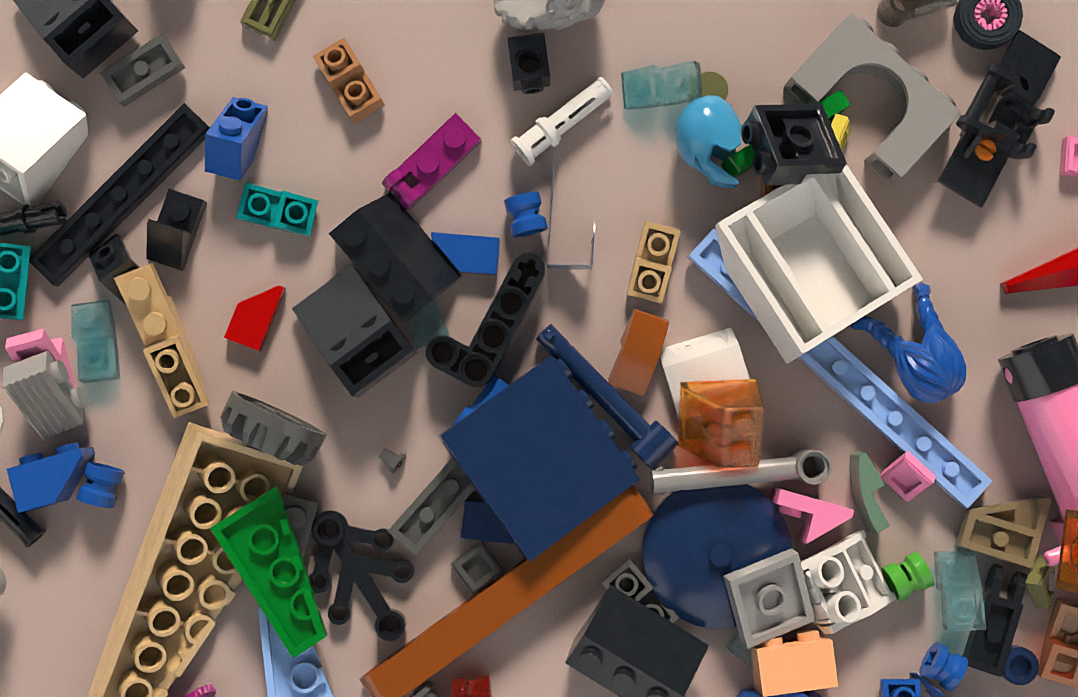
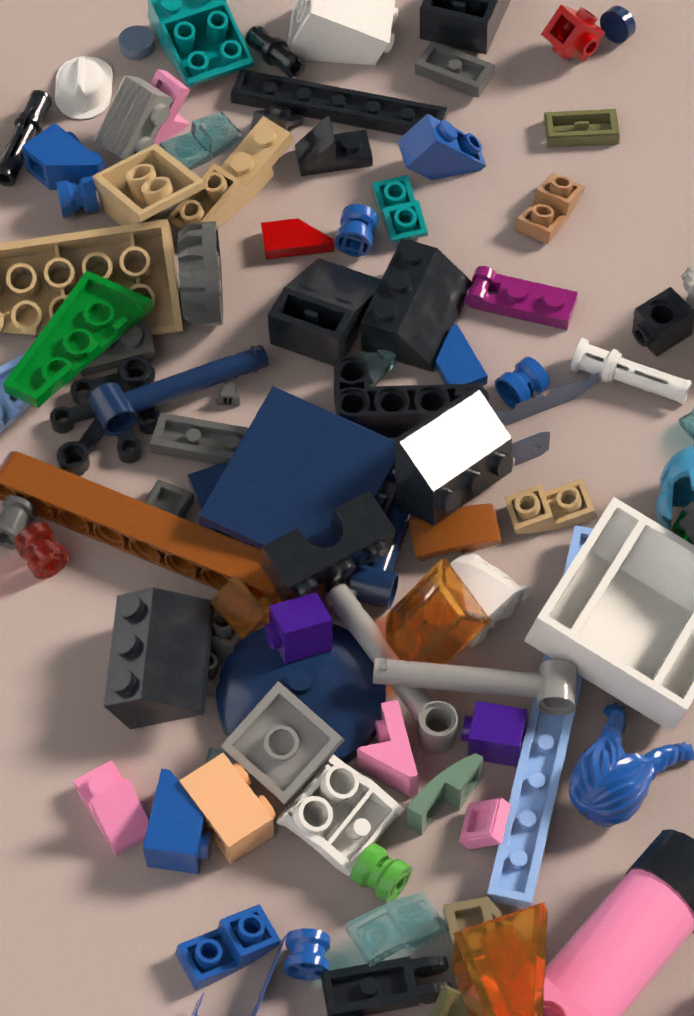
camera: 65 degrees right, 30 degrees down
(144, 426) = (145, 185): none -> tan slope
(282, 260) = (356, 230): none -> blue wheel
(367, 568) = (118, 409): none -> dark blue piece
(591, 323) = (451, 458): none -> slope
(630, 563) = (242, 607): none -> clear orange panel
(634, 506) = (300, 567): none -> black arch
(678, 533) = (299, 628): none -> dark purple brick
(835, 365) = (552, 685): none -> light grey piece
(838, 425) = (495, 732): none -> dark purple brick

